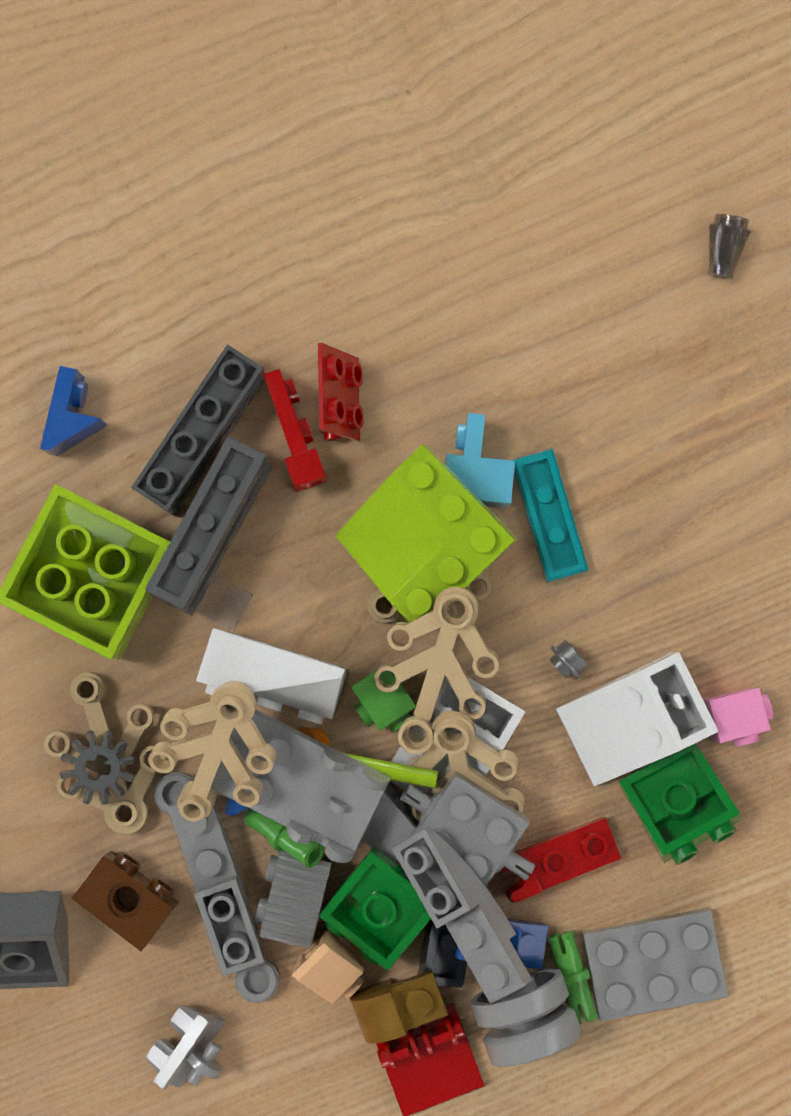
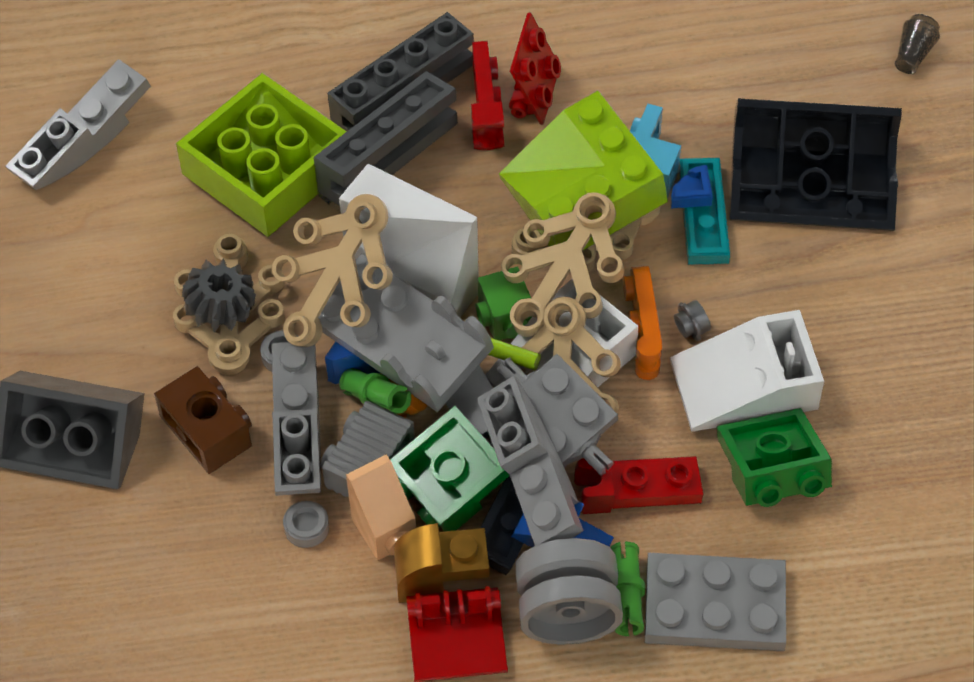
camera: 15 degrees right, 30 degrees down
(63, 424) = (291, 48): blue slope -> none
(193, 1054) = (217, 561): light grey hips -> none
(521, 675) = (640, 291): none -> orange plate
(535, 502) = (692, 189): none -> blue tile
(651, 437) = (814, 164): none -> black piece
(740, 715) = (850, 395): bright pink brick -> none

